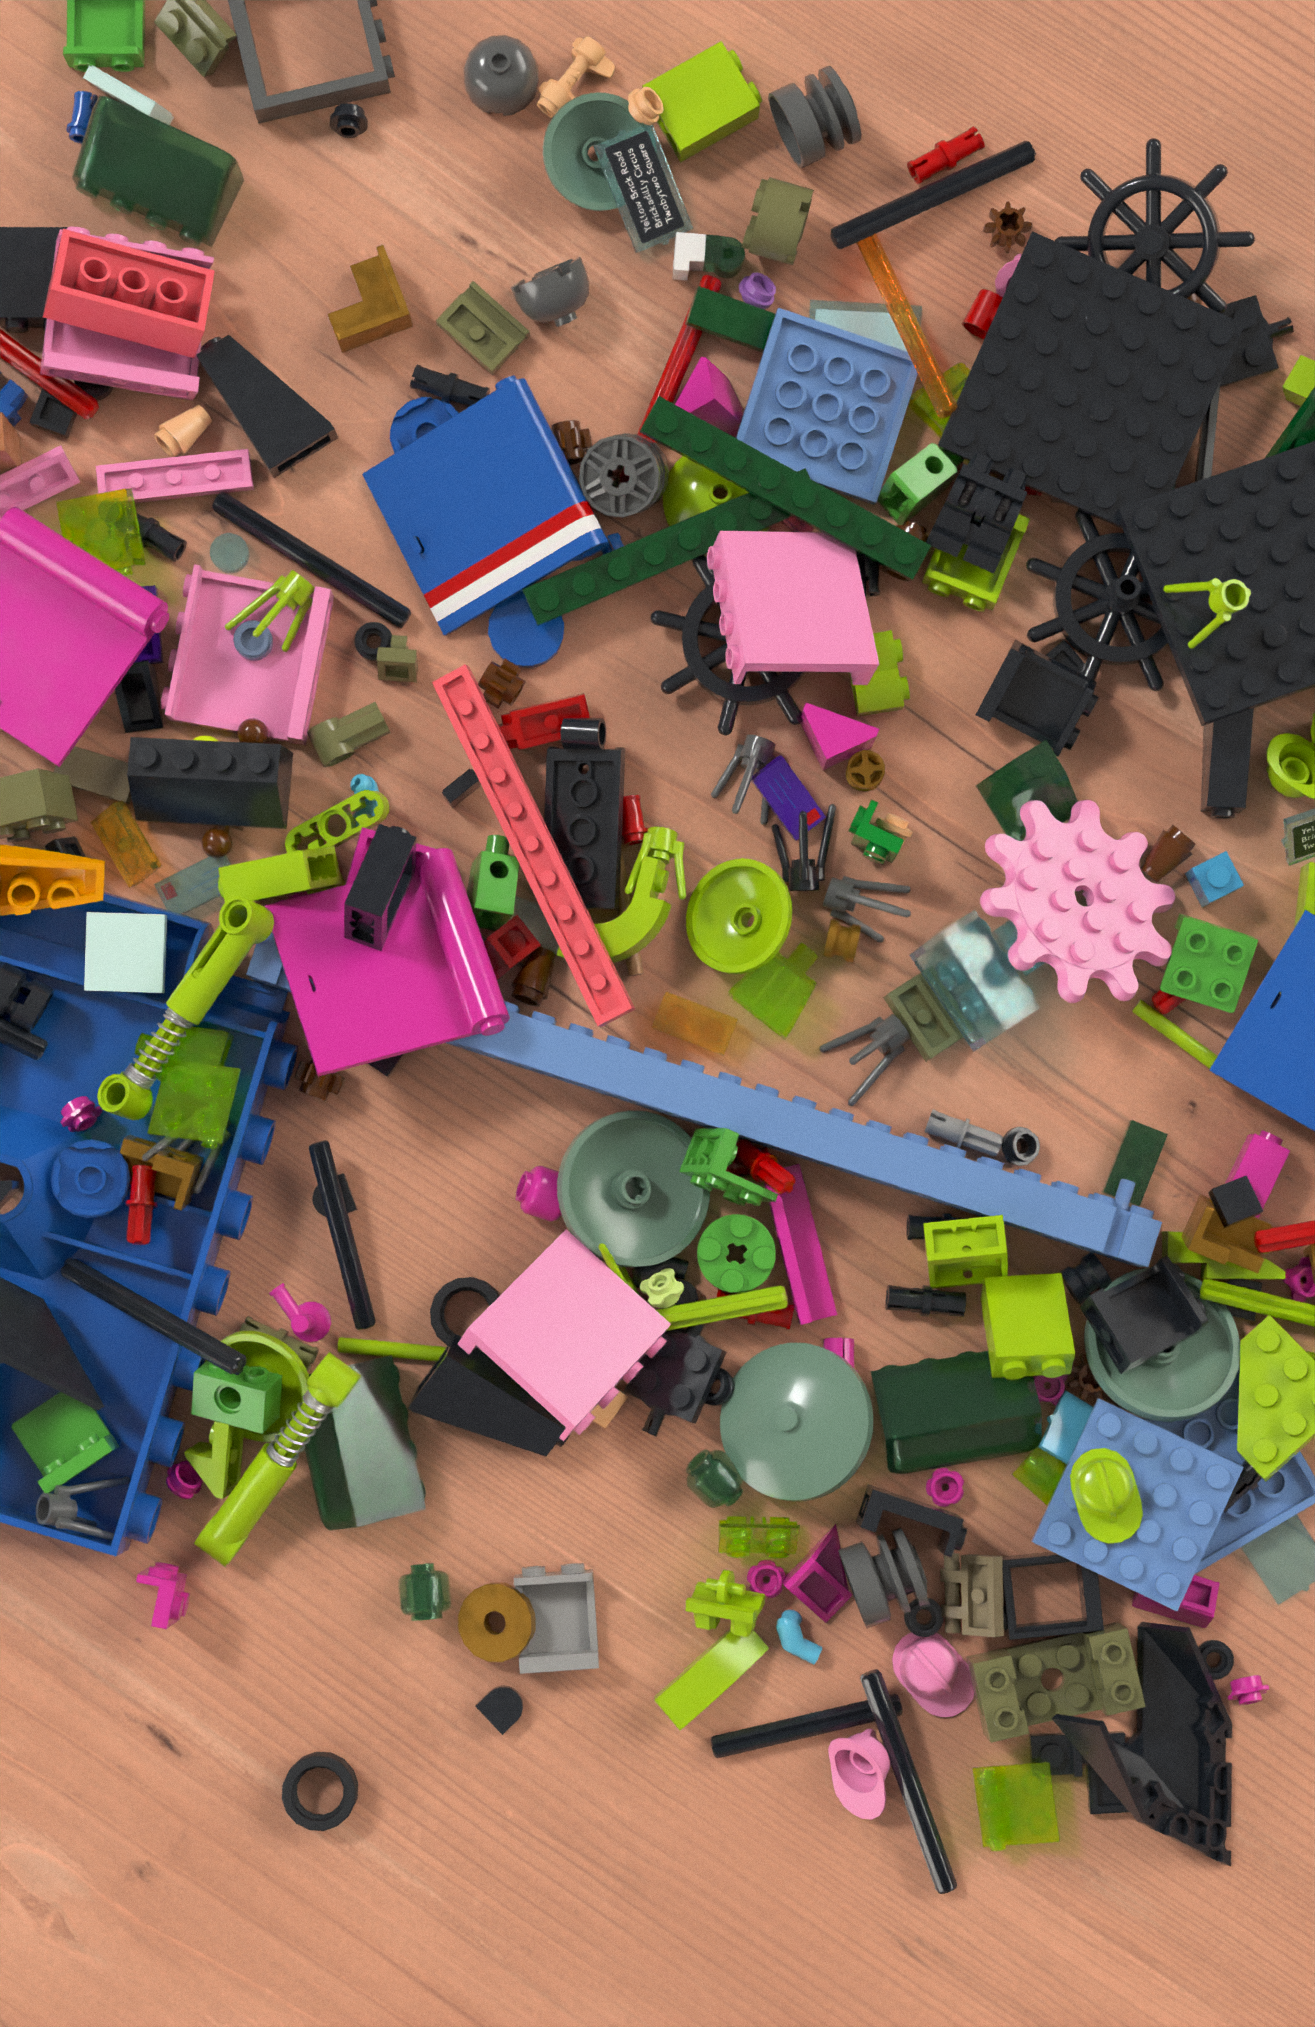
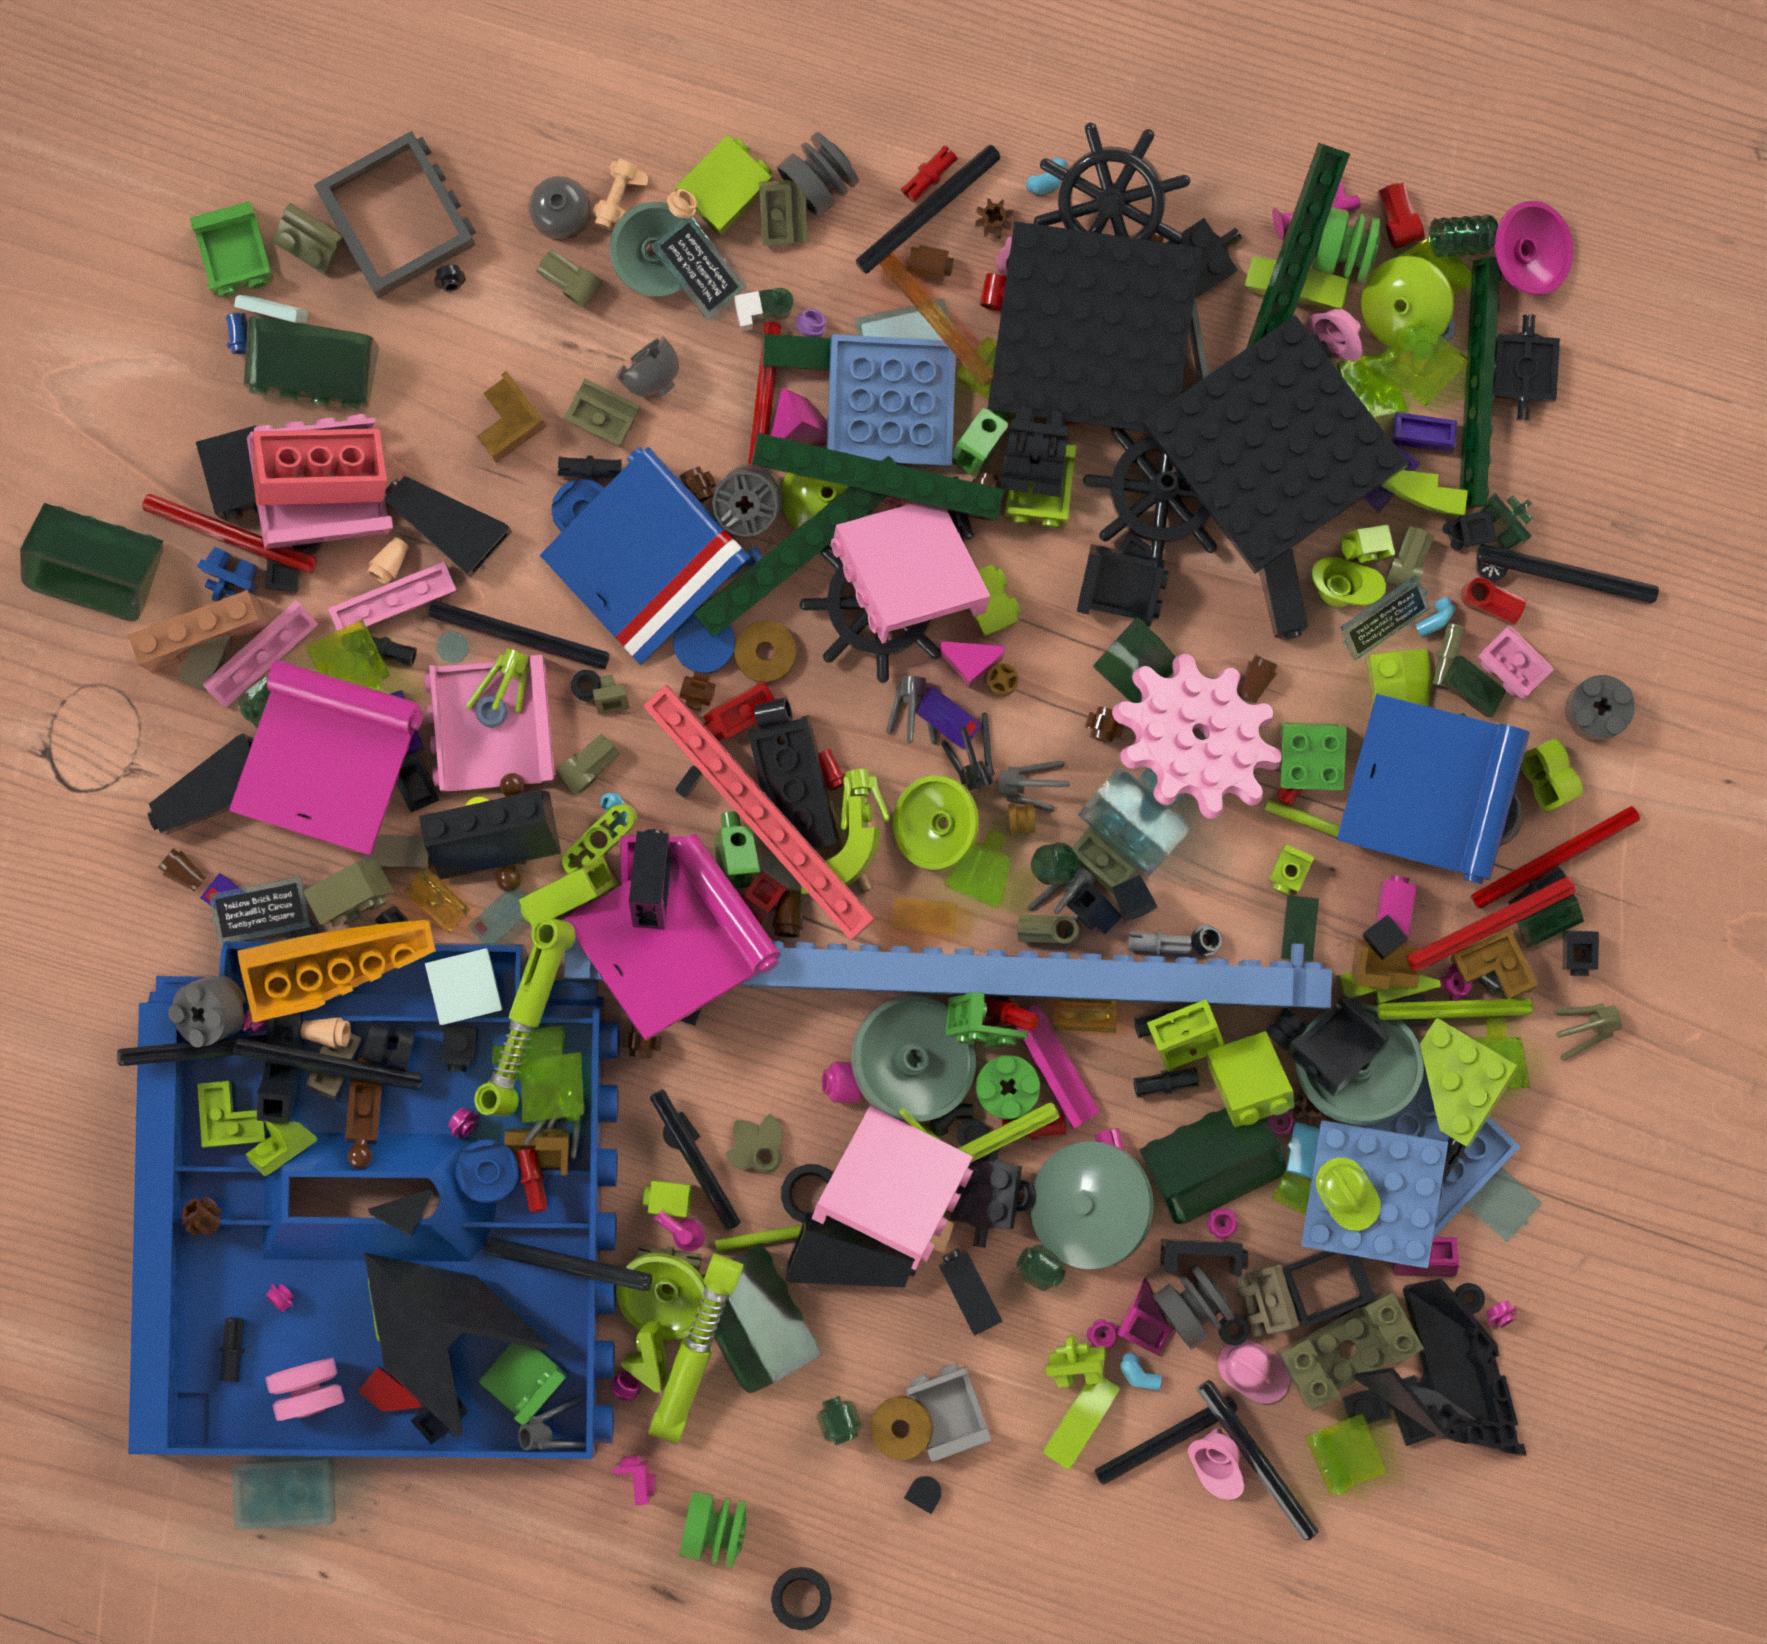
camera: 15 degrees left, 0 degrees up
(101, 1024) = (459, 1048): none -> black bracket
(237, 1680) = (713, 1529): none -> bright green wheel
(239, 1400) = (636, 1316): bright green brick -> none
(298, 1270) = (669, 1196): none -> lime brick
(420, 1232) = (753, 1141): none -> olive plate
(494, 167) = (576, 282): none -> olive piece
(595, 637) = (760, 633): none -> pearl gold tile
(622, 1483) = (969, 1291): none -> black brick
(662, 1288) = (958, 1131): yellowish green plate -> none
(760, 148) = (782, 213): none -> olive plate
(773, 1539) = (1100, 1301): clear neon green hinge -> none
(780, 220) = (811, 264): olive brick -> none
(834, 1079) = (1046, 929): none -> olive piece
(852, 1194) = (1085, 1015): none -> clear yellow plate
(866, 1004) = (1053, 865): none -> clear green head
(875, 842) = (1027, 735): green bracket -> none
(895, 826) = (1037, 719): light nougat plate -> none
(897, 1071) = (1094, 909): none -> black brick
(917, 258) = (930, 262): none -> reddish brown brick
(948, 1072) = (1133, 898): none -> black slope
(970, 858) = (1103, 725): none -> reddish brown gear
(1078, 203) = (1045, 182): none -> medium azure arm
(1144, 1074) = (1293, 857): none -> lime brick
(1214, 879) = (1299, 688): dark azure brick -> none
(1223, 599) = (1243, 474): lime plant -> none

